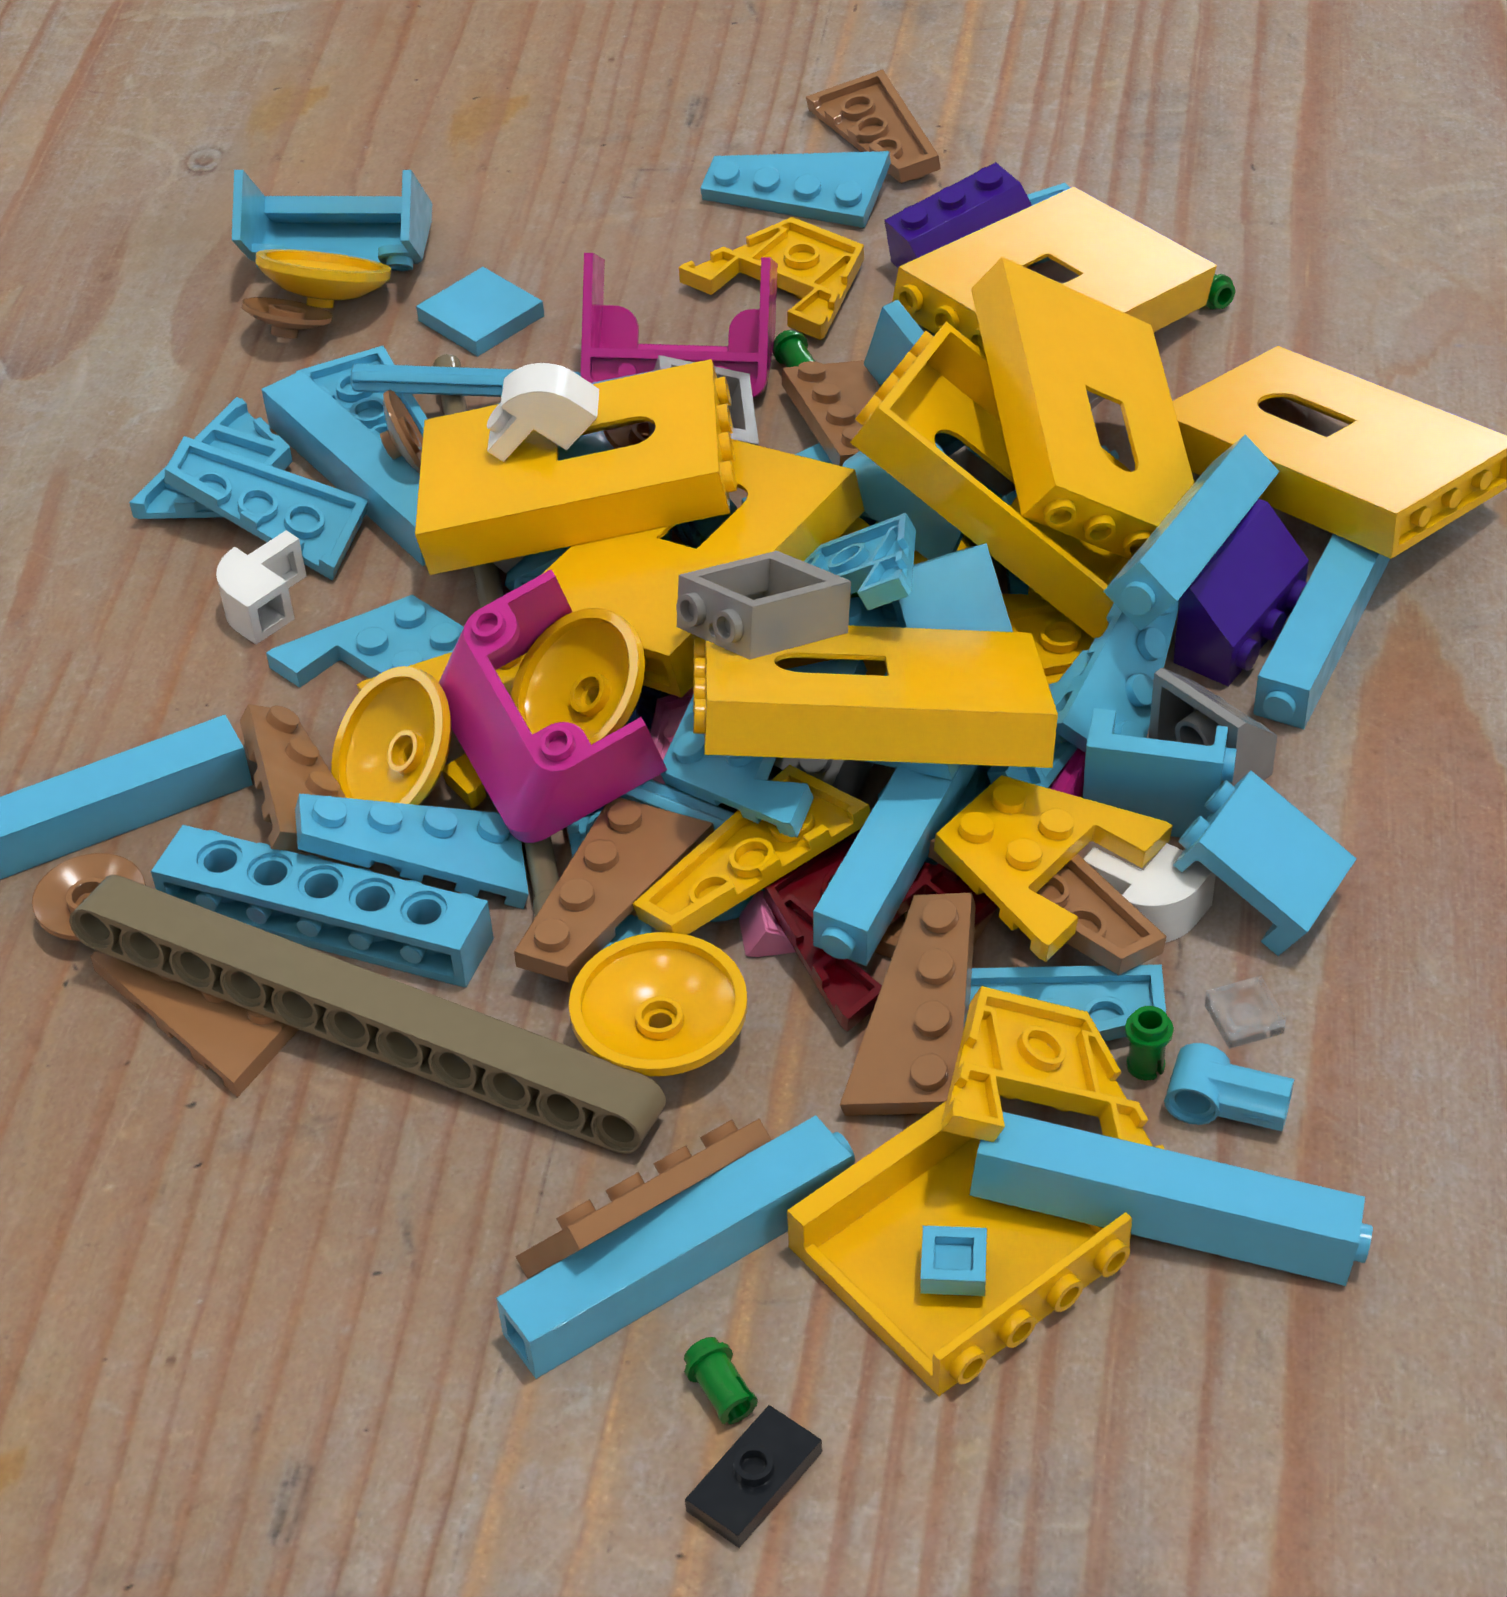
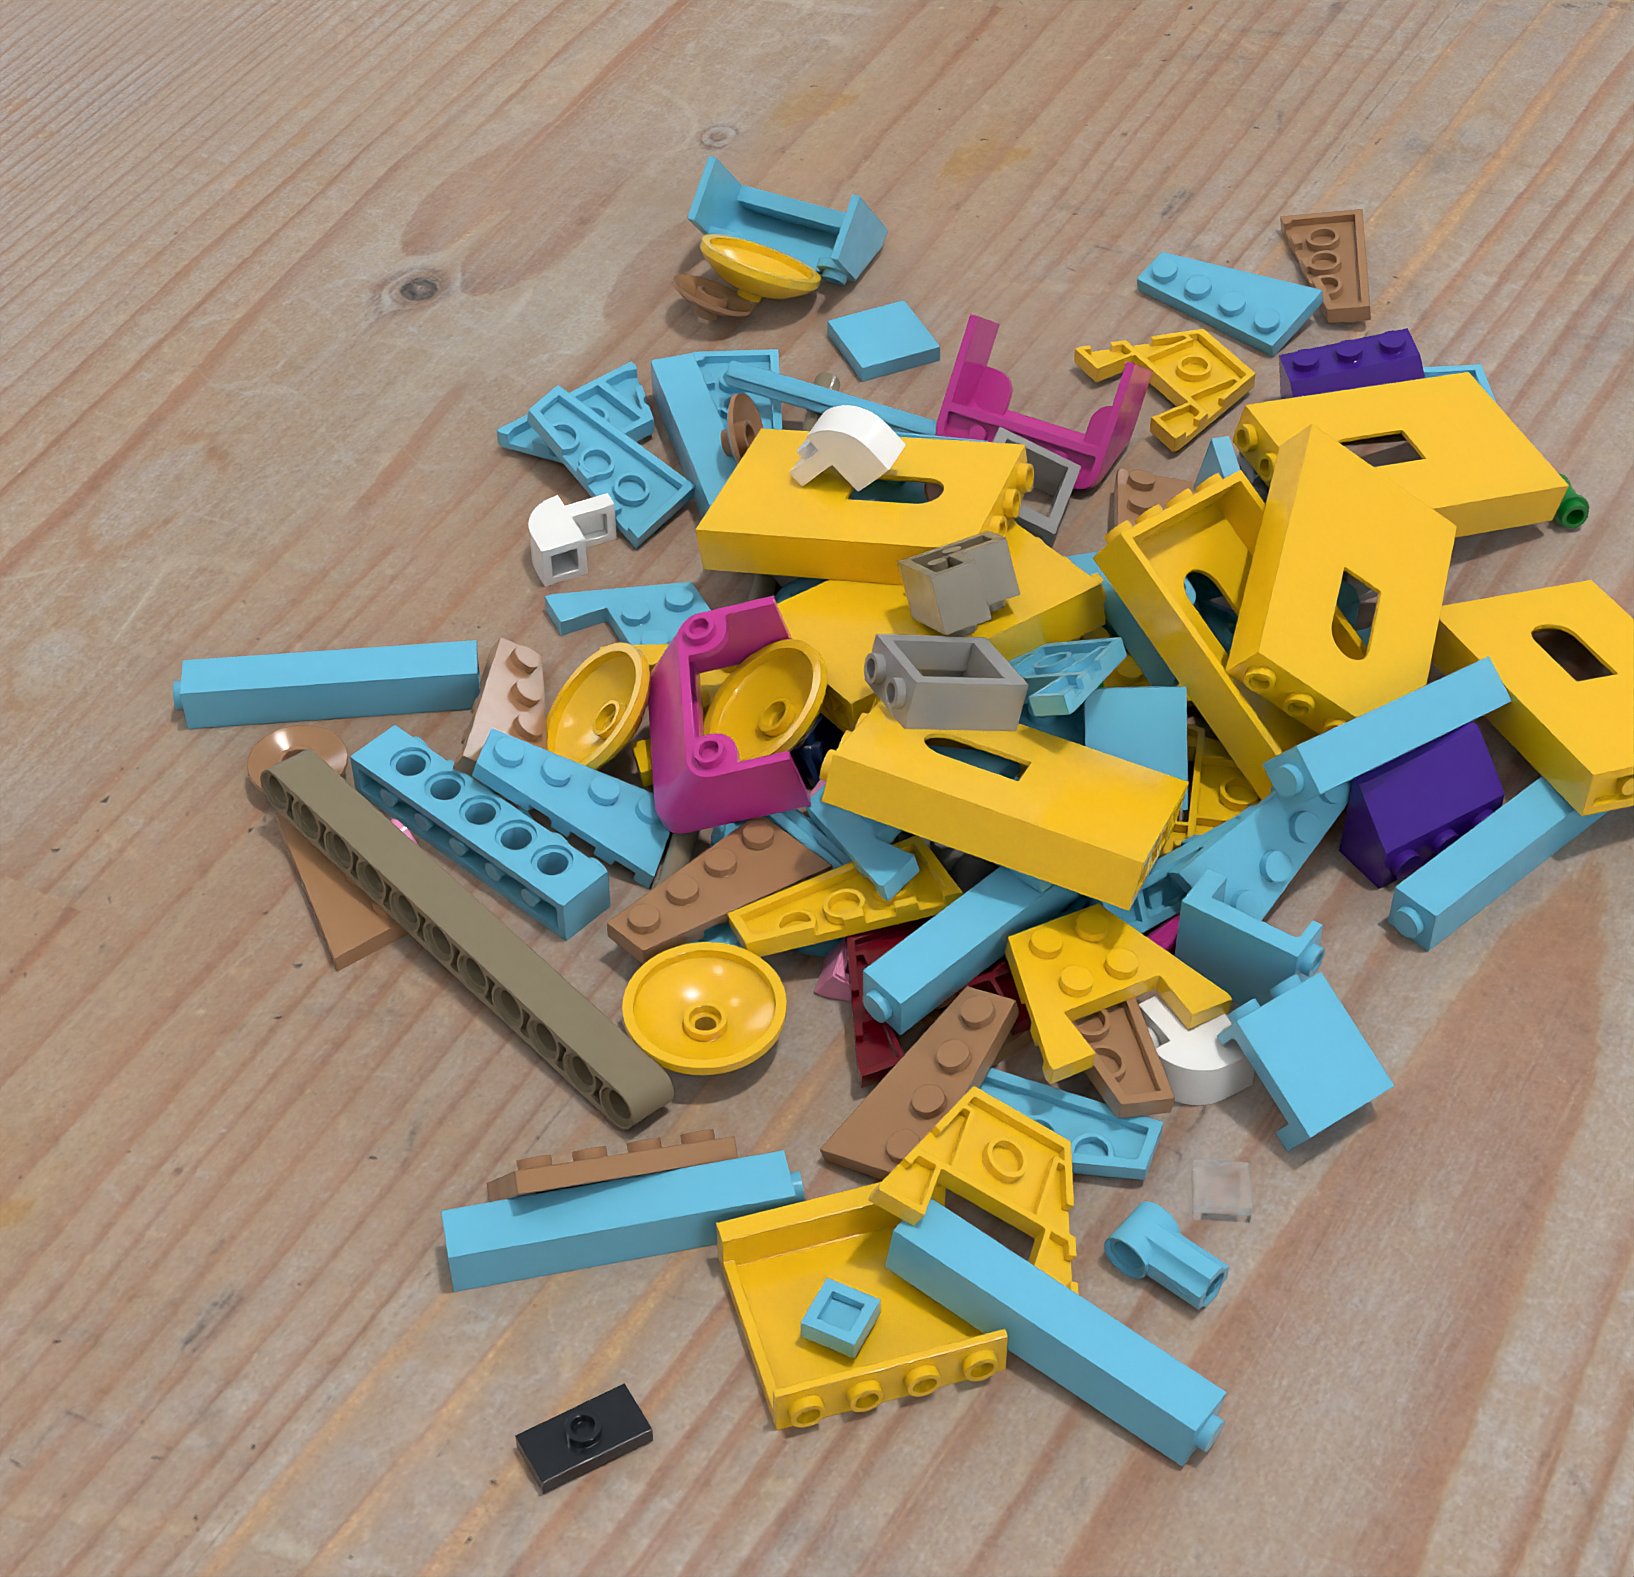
camera: 20 degrees right, 0 degrees up
(712, 1368) = (594, 1335): green pin -> none
(725, 506) = (959, 583): none -> dark tan brick
(791, 348) = (1139, 453): green pin -> none
(1148, 1033) = (1115, 1180): green pin -> none
(1191, 714) = (1314, 894): light grey slope -> none

